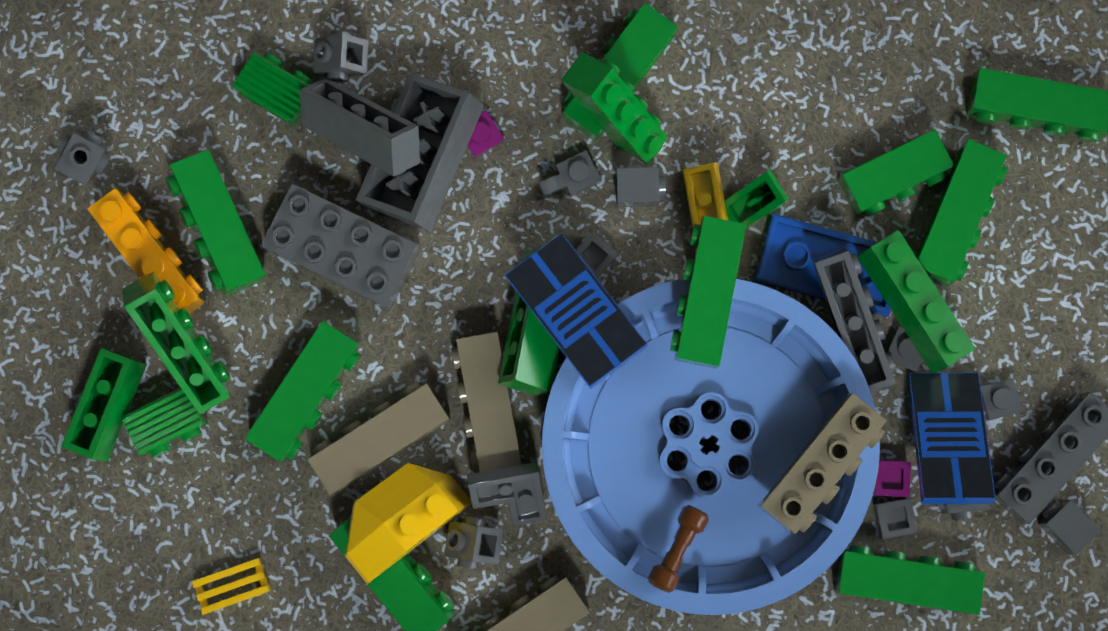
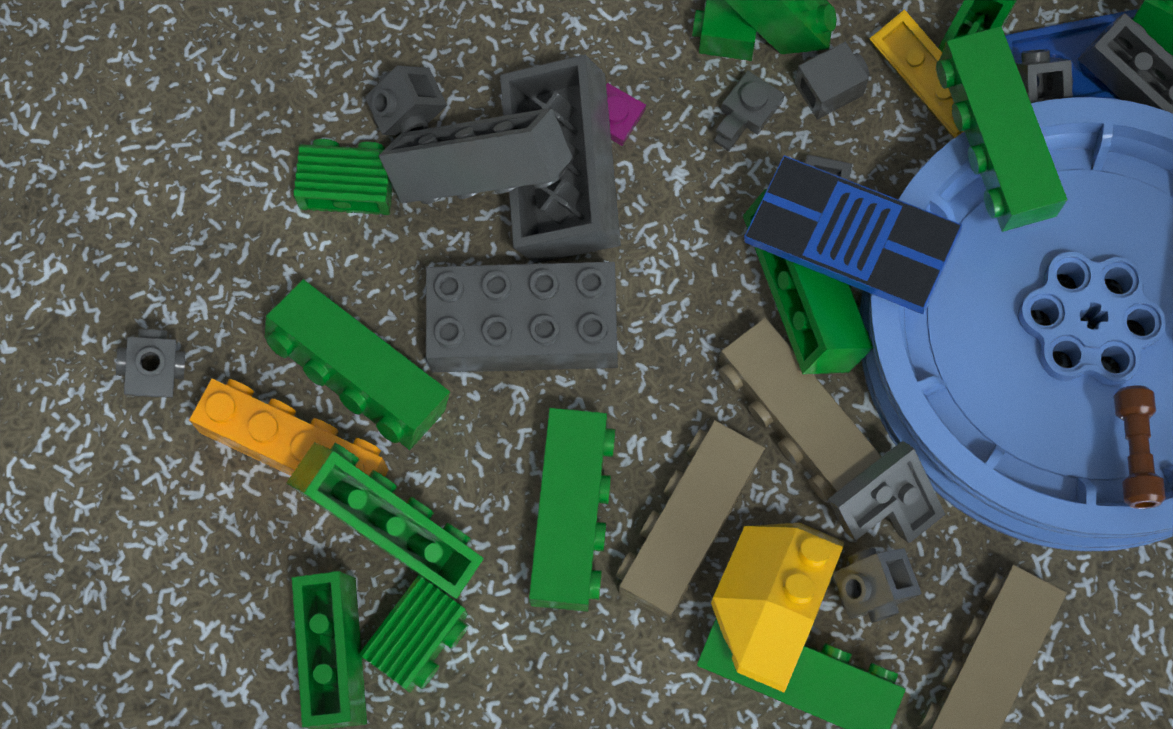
camera: 25 degrees left, 10 degrees down
(769, 263) = (1045, 75): none -> dark grey brick

